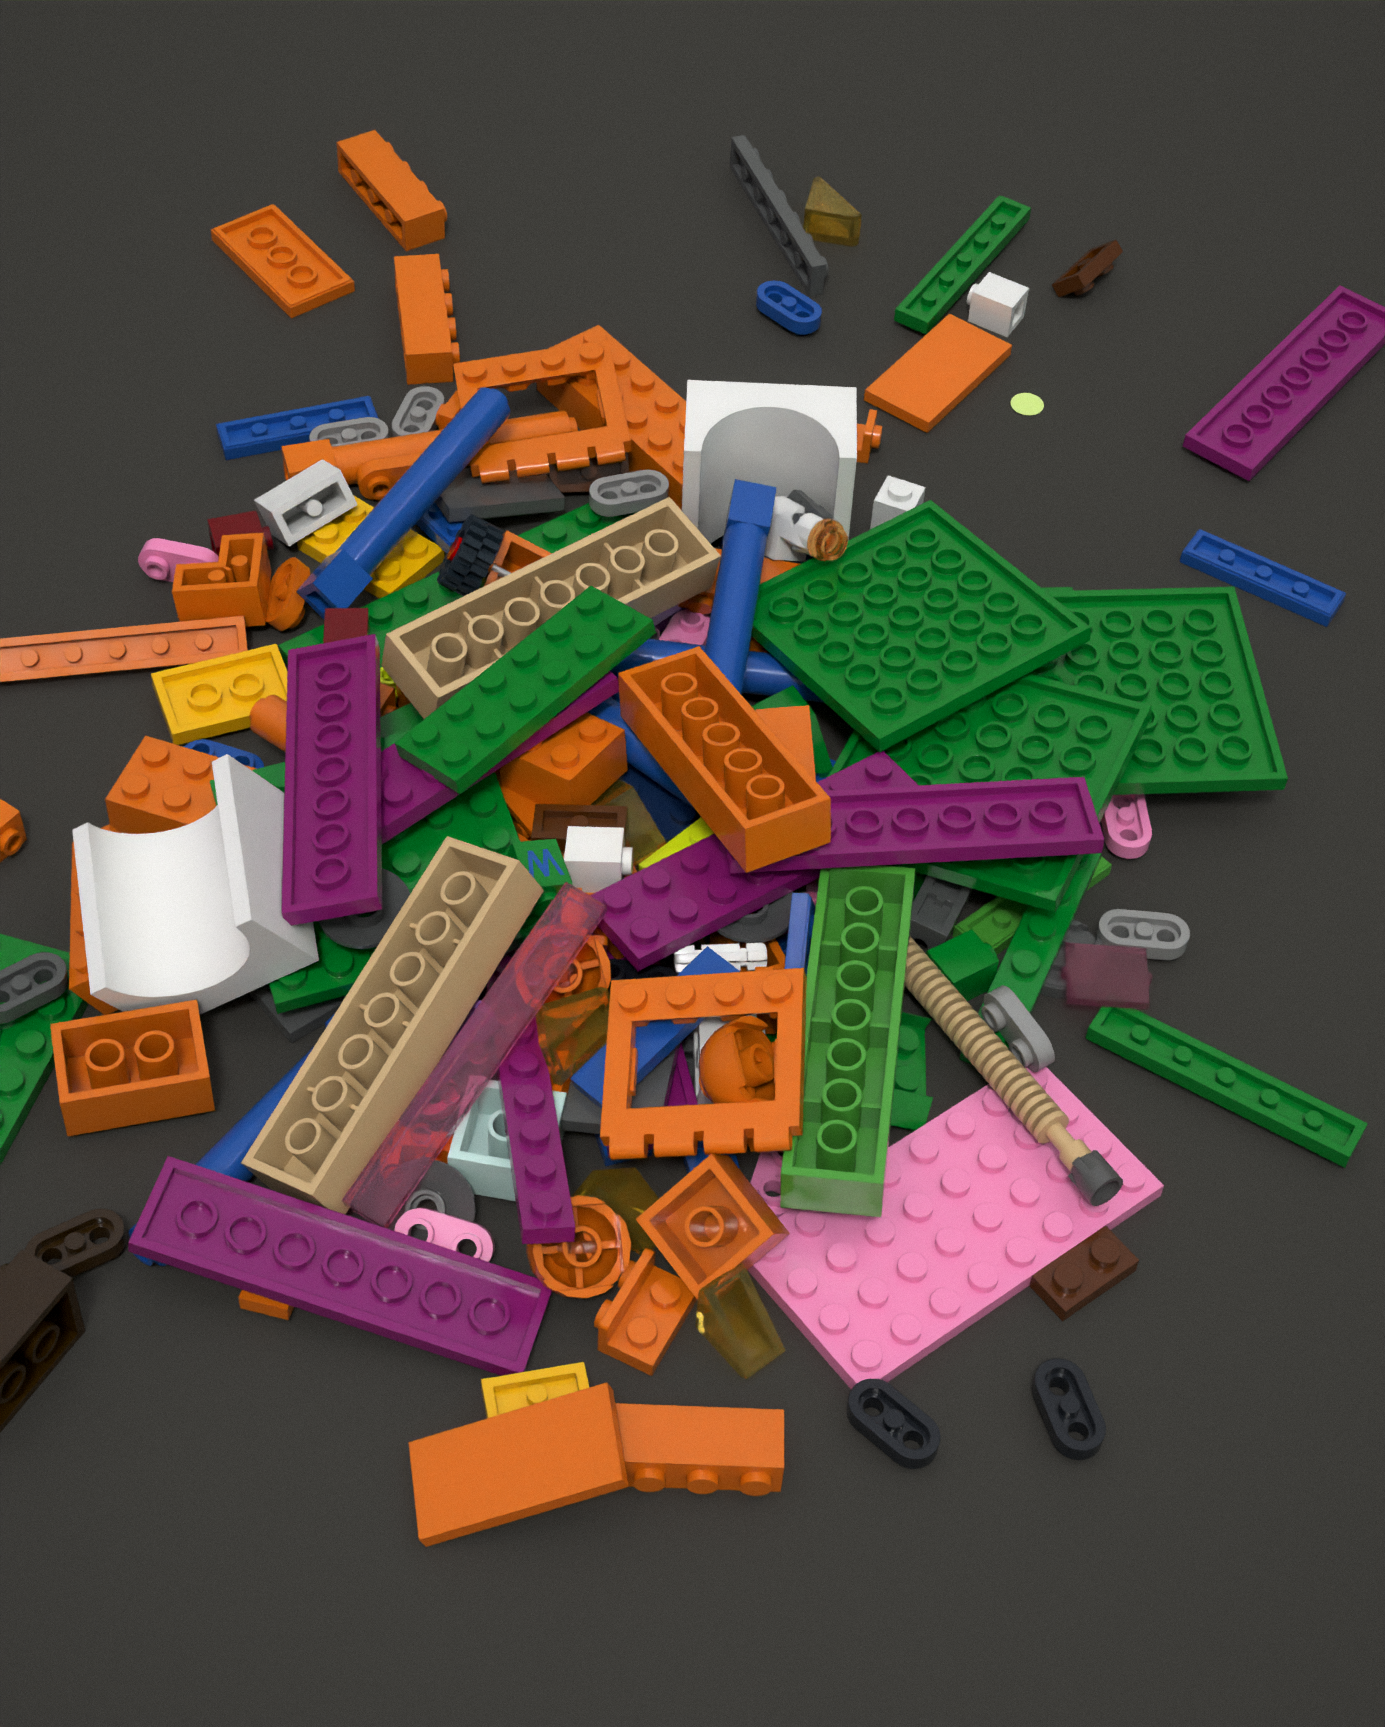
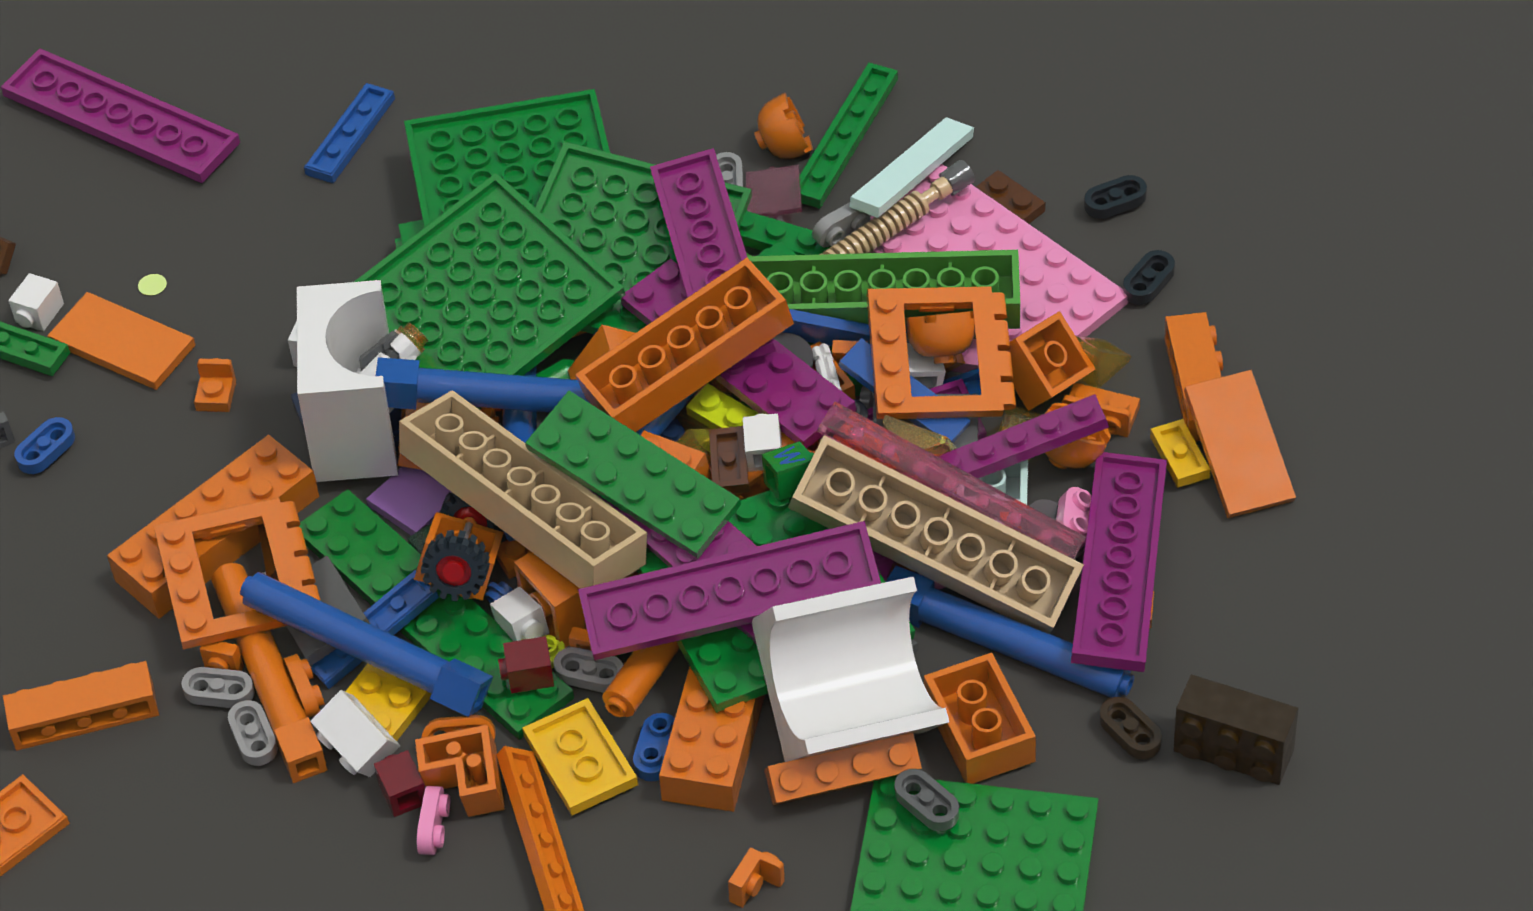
camera: 90 degrees left, 0 degrees up
(284, 428) = (232, 781): blue tile -> none
(627, 492) = (324, 510): light grey plate -> none
(1128, 1132) = (911, 167): none -> light aqua tile
(1228, 1002) = (782, 129): none -> orange cylinder

